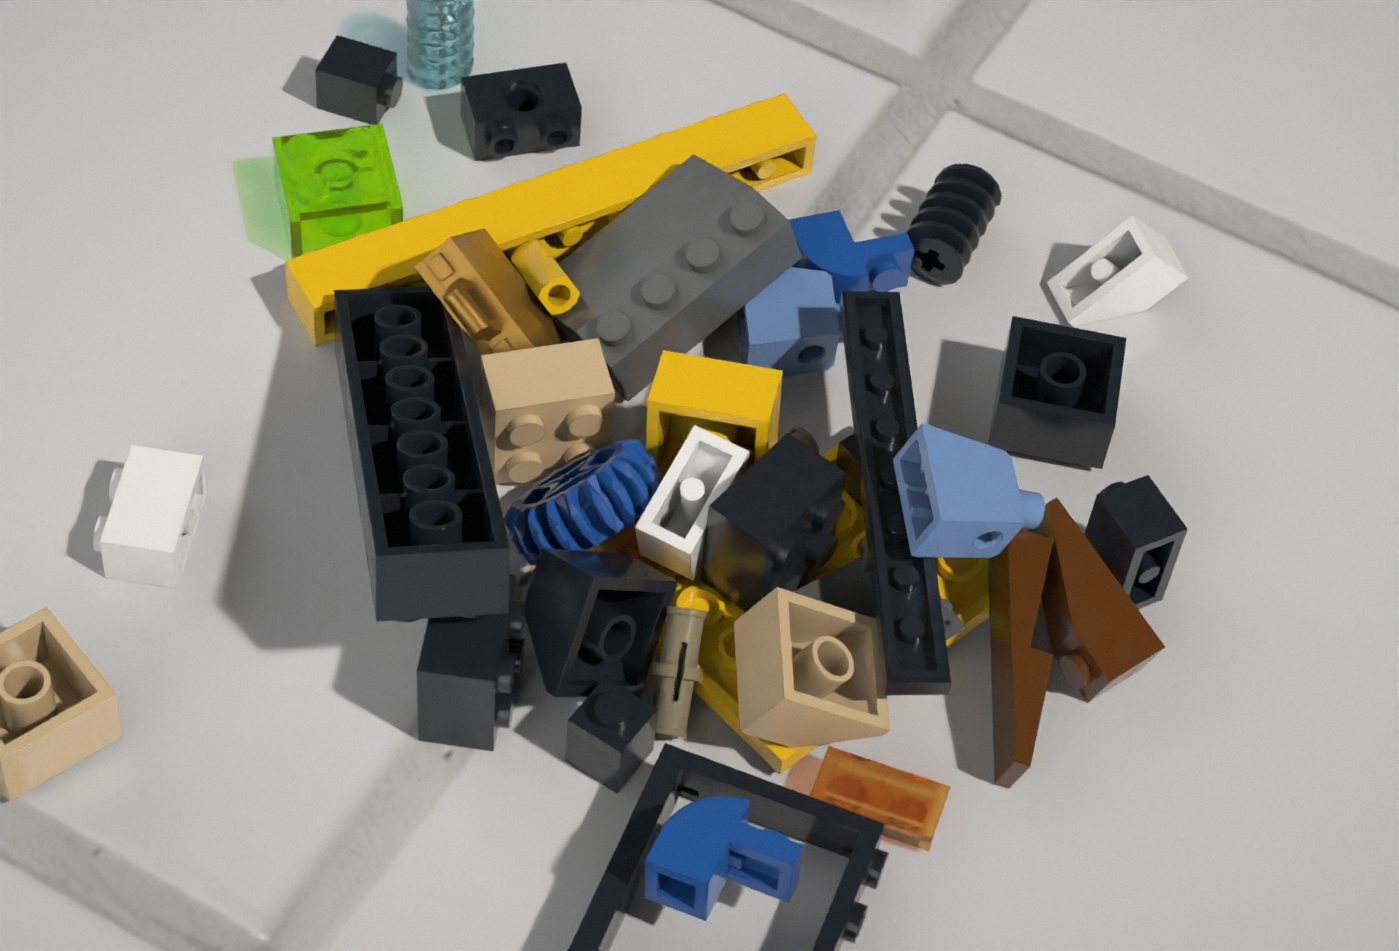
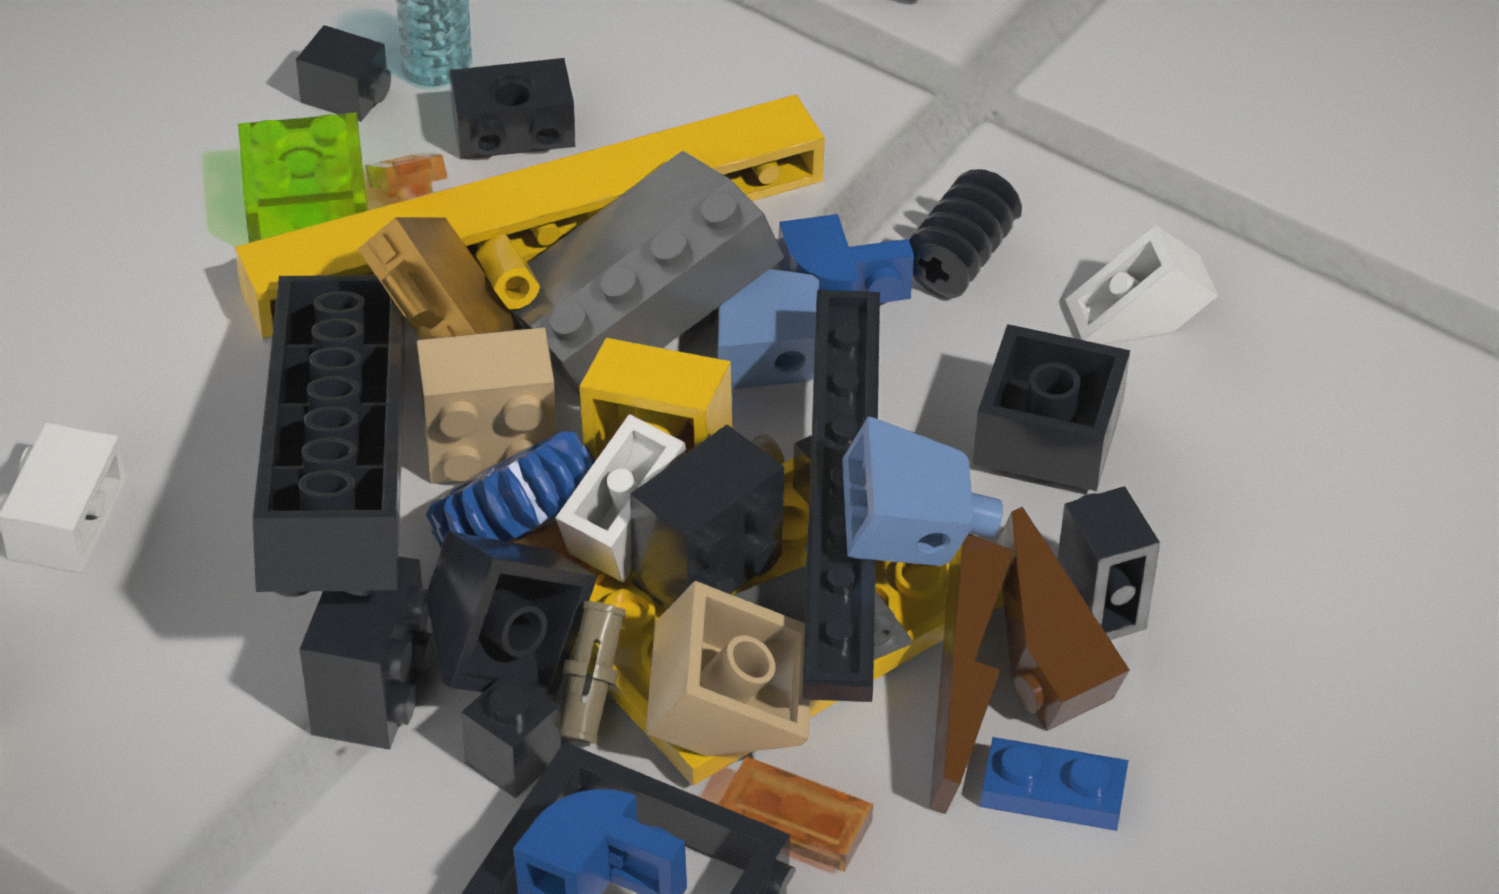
camera: 10 degrees right, 5 degrees down
(436, 181) = (407, 175): none -> clear orange plate
(1104, 755) = (1054, 783): none -> blue plate

